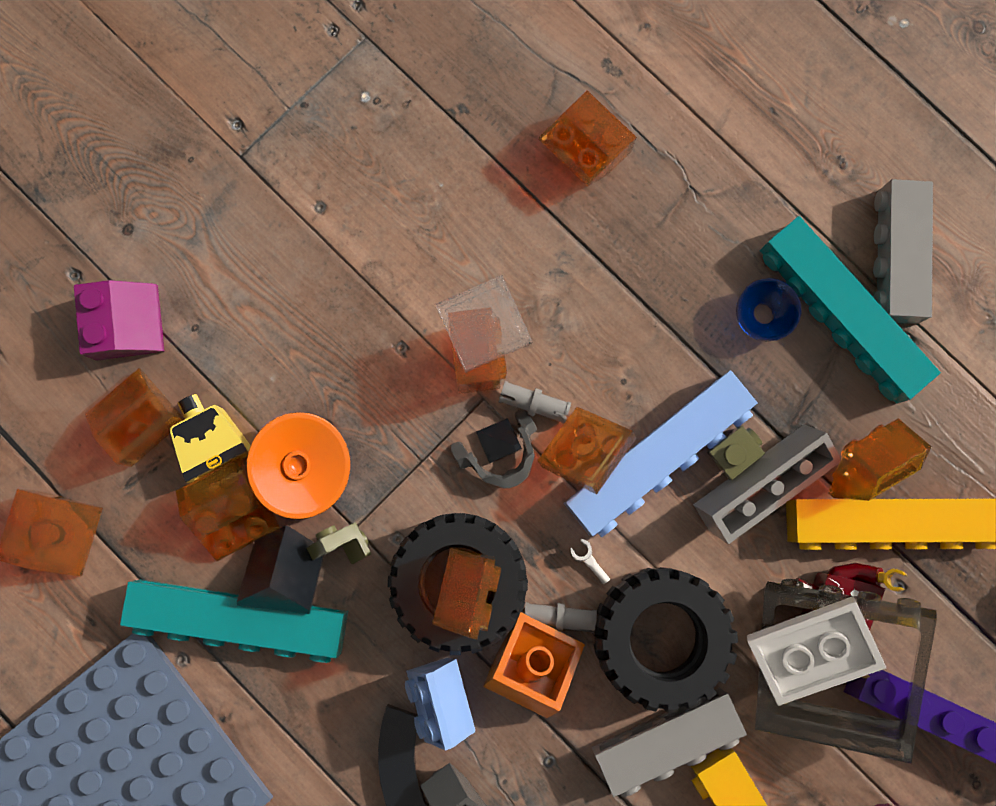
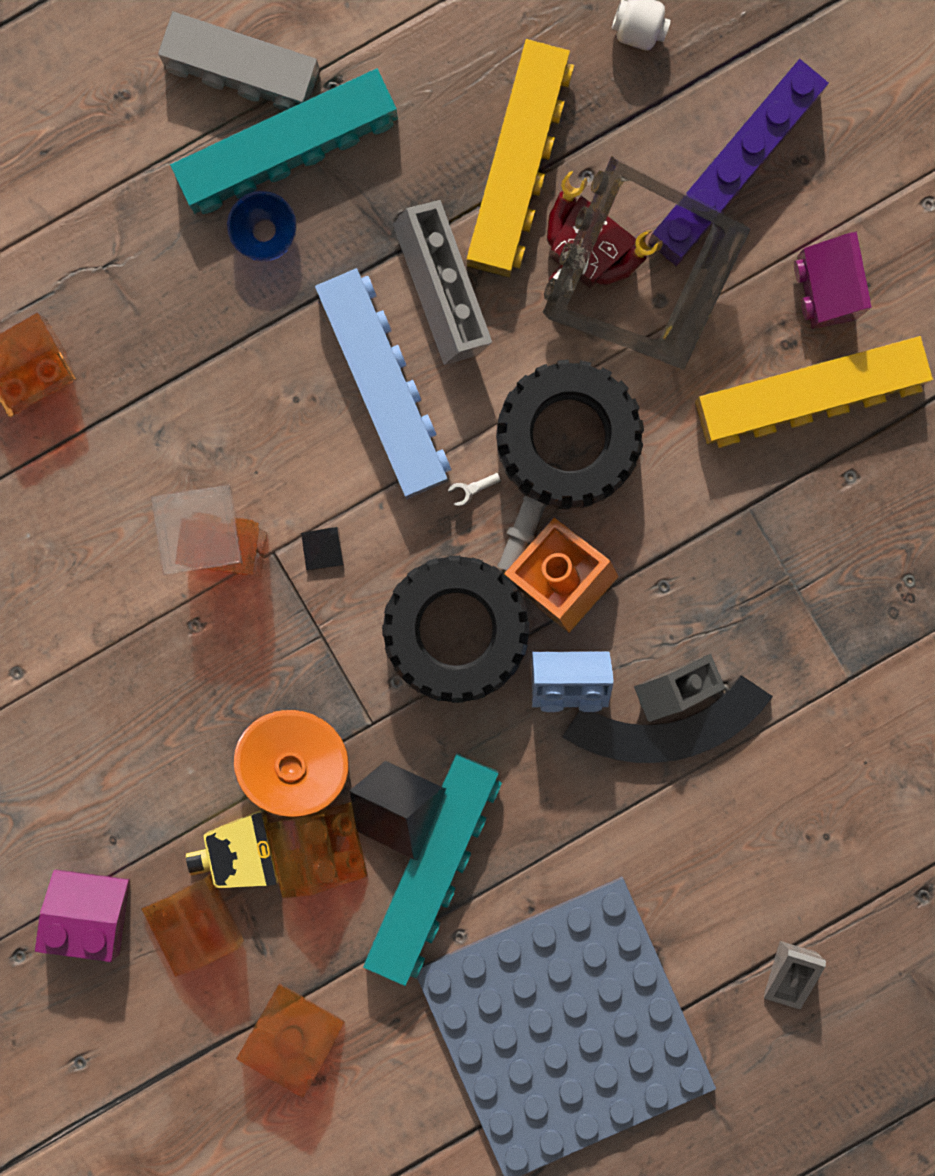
camera: 70 degrees left, 5 degrees up
(350, 538) = (382, 730): olive bracket -> none
(464, 593) = (462, 620): clear orange slope -> none
(513, 476) = (364, 544): dark grey helmet -> none
(534, 402) = (292, 499): light grey pin -> none
(587, 449) = (356, 459): clear orange plate -> none
(667, 743) = (674, 459): light grey brick -> none
(737, 451) = (401, 303): olive bracket -> none
(816, 651) = (620, 287): white plate -> none
(878, 462) = (450, 164): clear orange slope -> none

